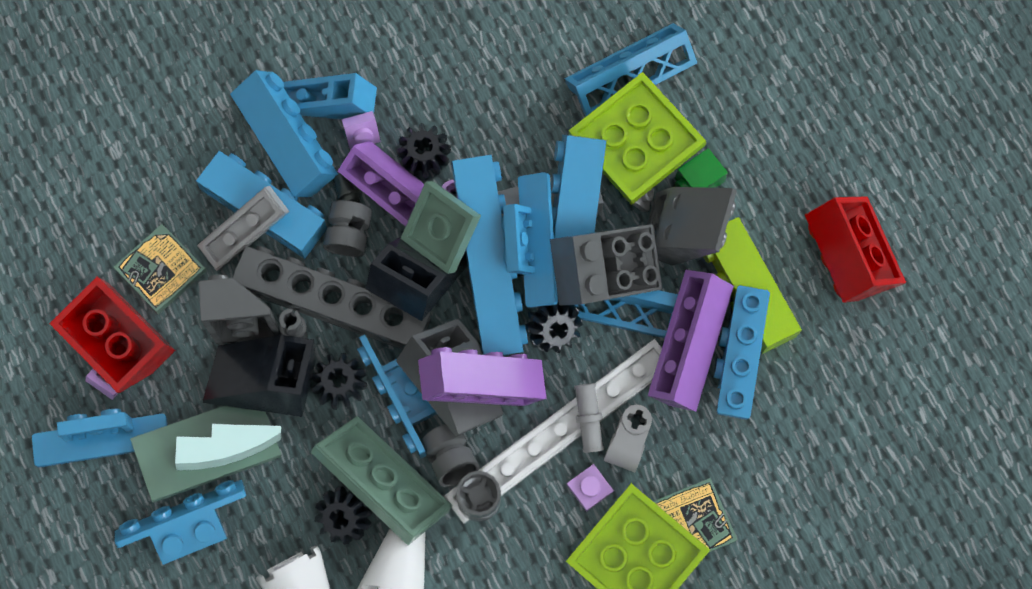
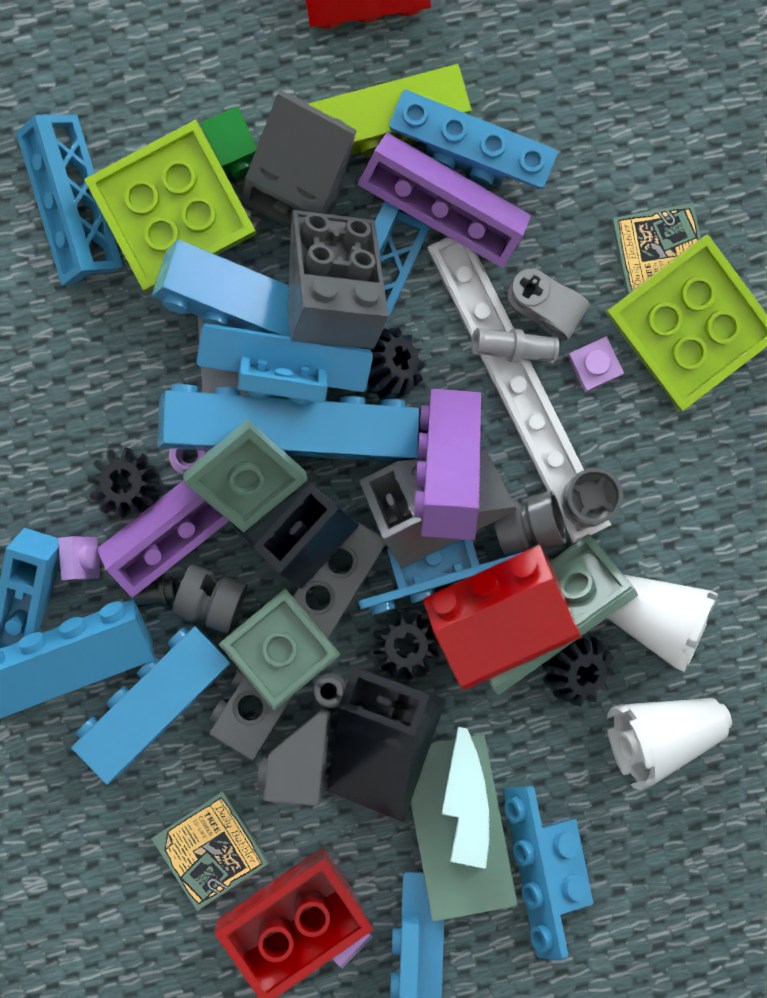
camera: 75 degrees left, 10 degrees up
(243, 228) = (184, 732): light grey tile -> none
(317, 283) = (279, 649): none -> sand green tile
(371, 443) = (501, 617): none -> red slope

